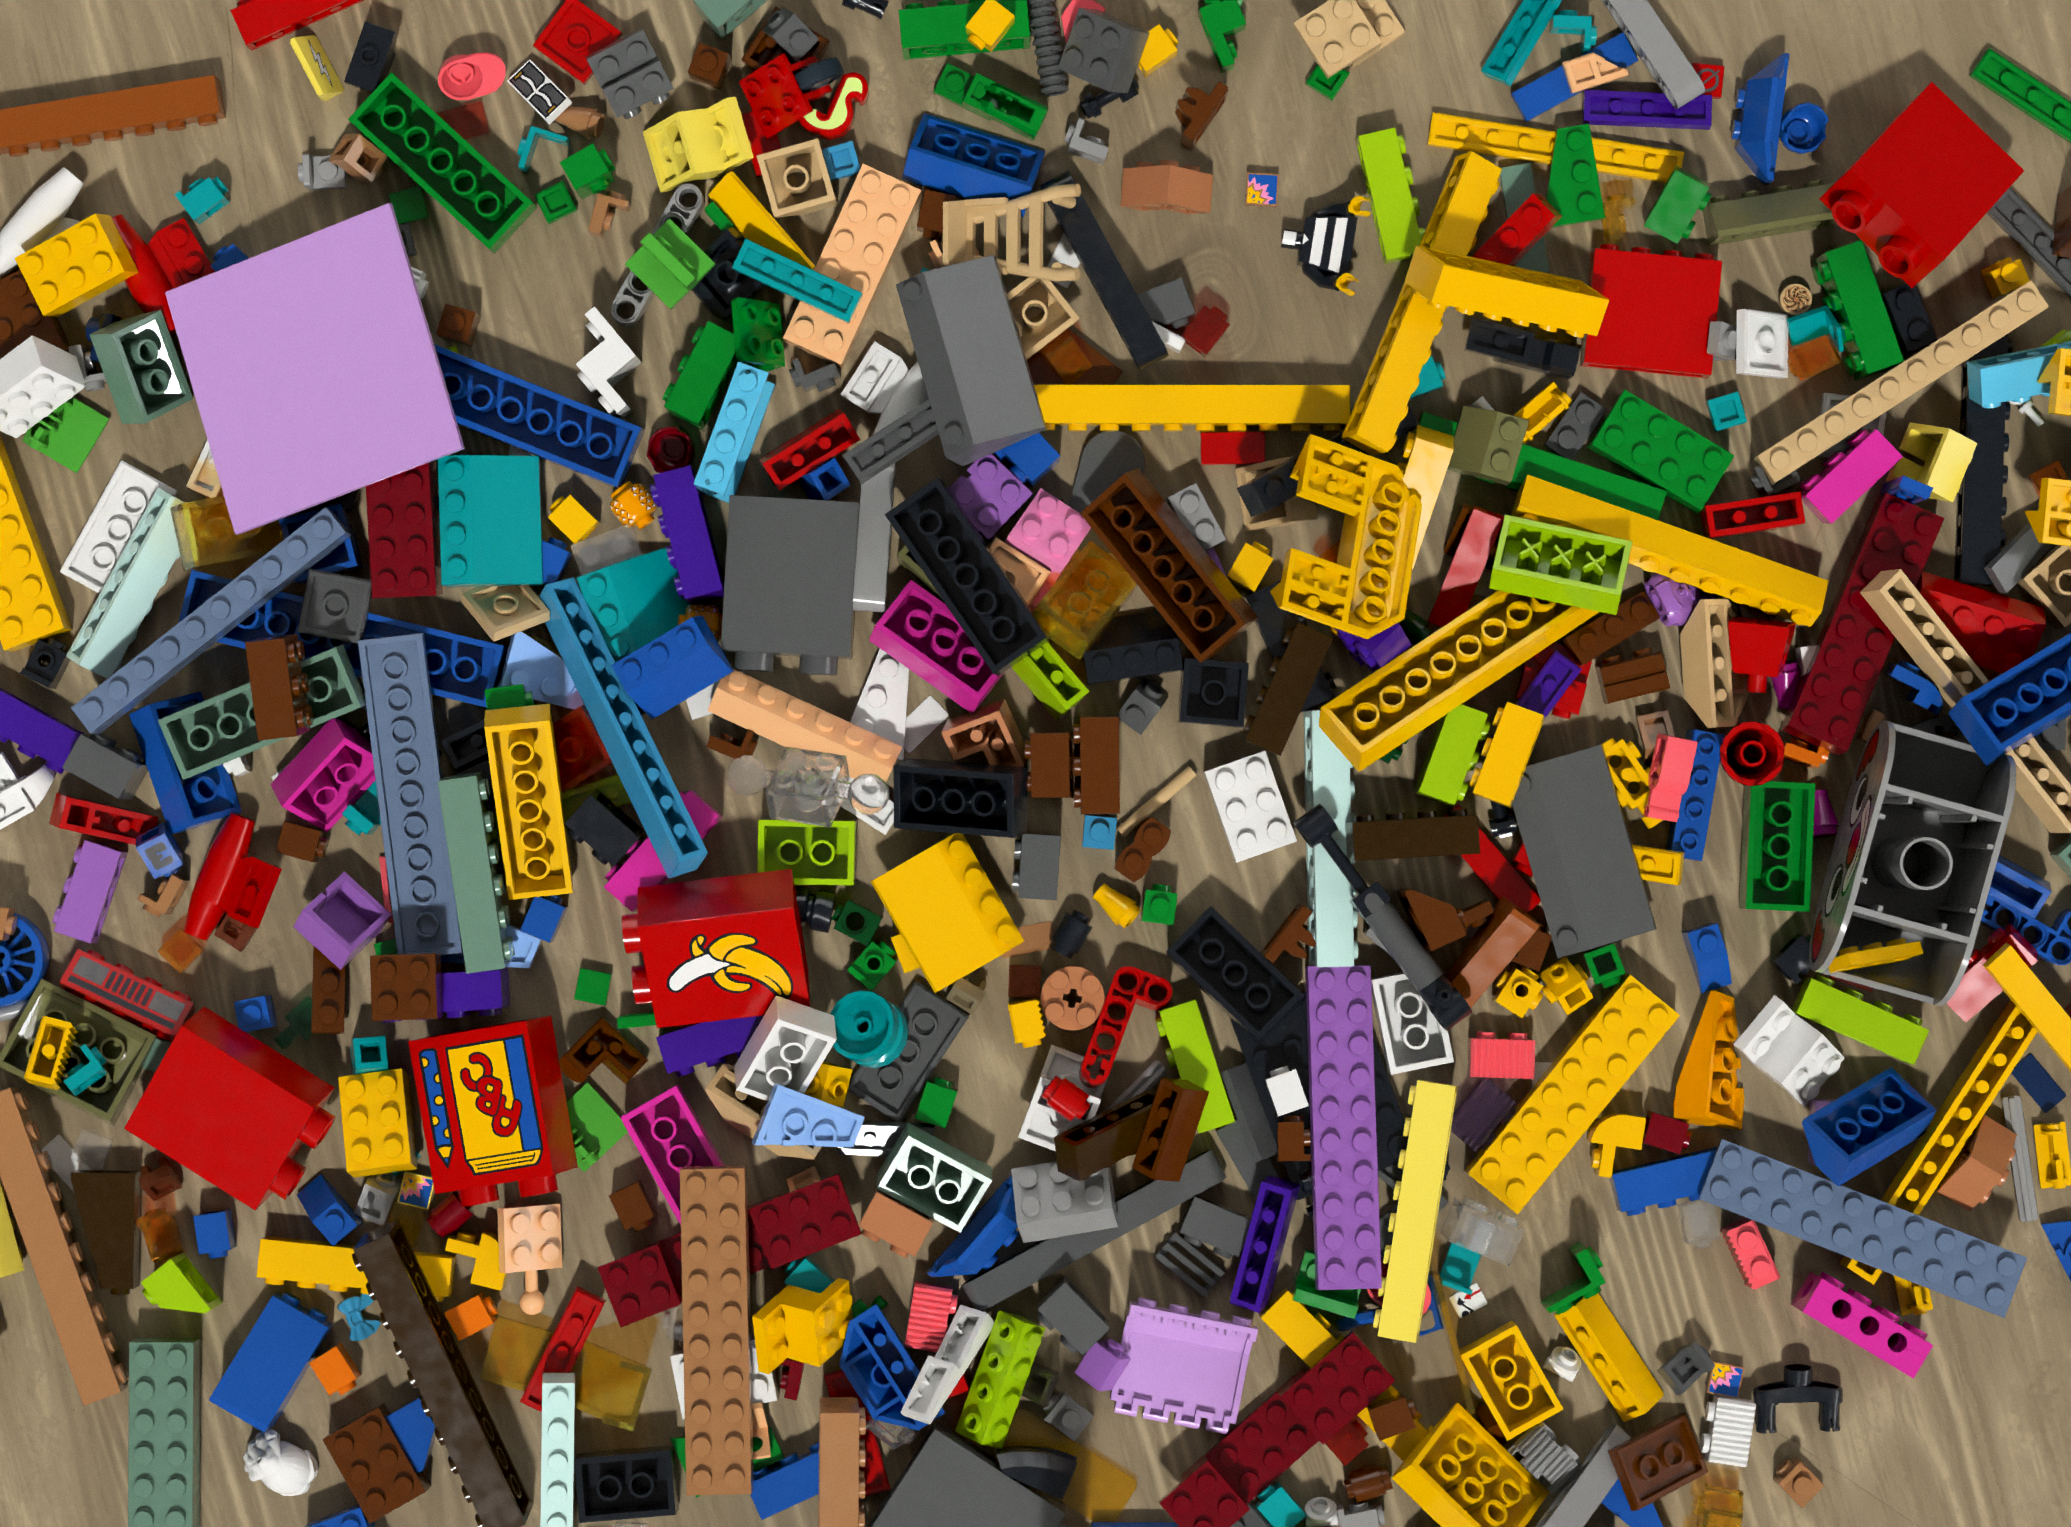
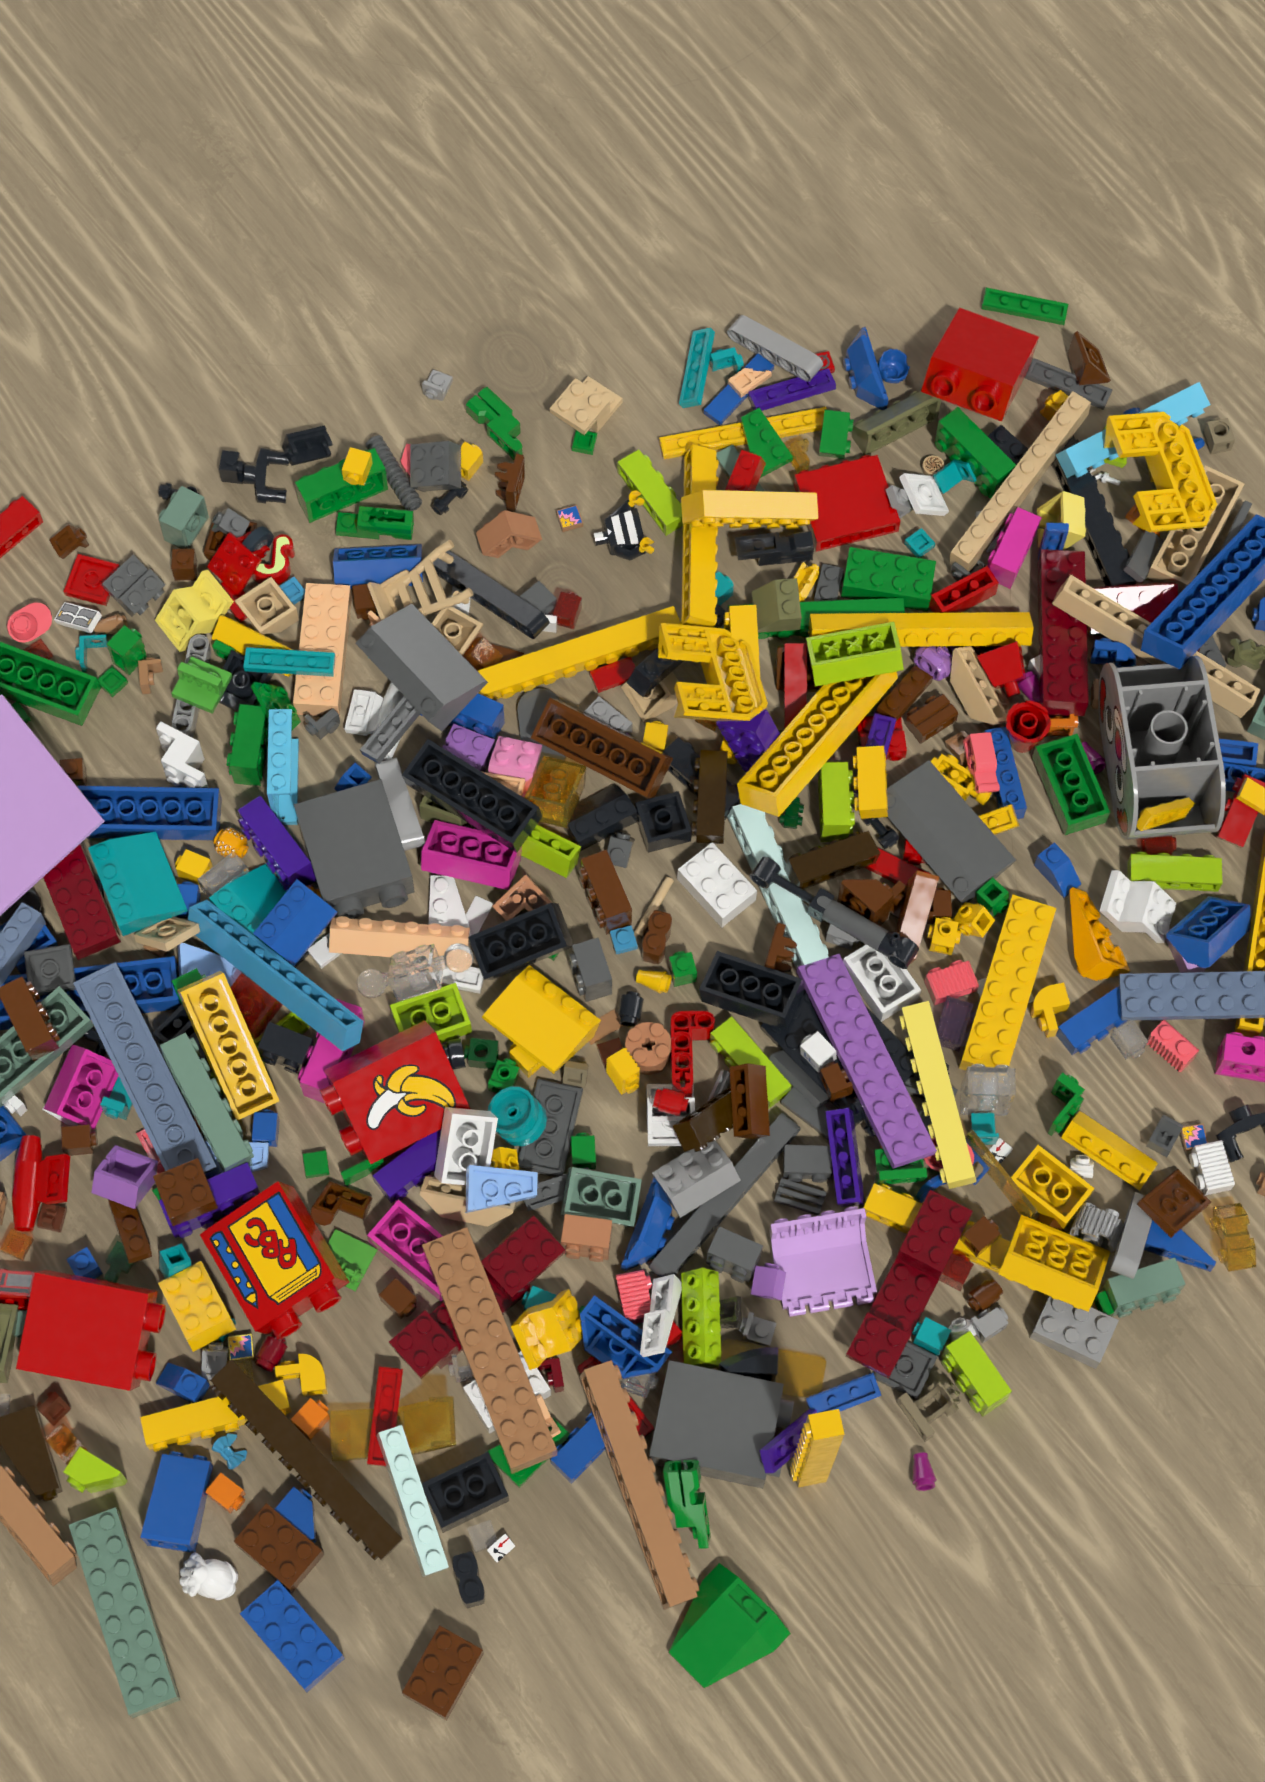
camera: 20 degrees left, 20 degrees down
(215, 1233) = (105, 1429): blue brick -> none
(530, 1242) = (334, 1351): light nougat plate -> none
(670, 449) = (240, 797): dark red hair -> none
(727, 745) = (350, 972): reddish brown bracket -> none
(809, 449) = (335, 766): red brick -> none
(1050, 765) = (574, 901): reddish brown slope -> none
(1089, 148) = (446, 530): light grey bracket -> none
(1666, 1132) = (1082, 990): dark red brick -> none
(1793, 958) = (1115, 851): black brick -> none
(1813, 358) = (960, 493): clear orange bracket -> none

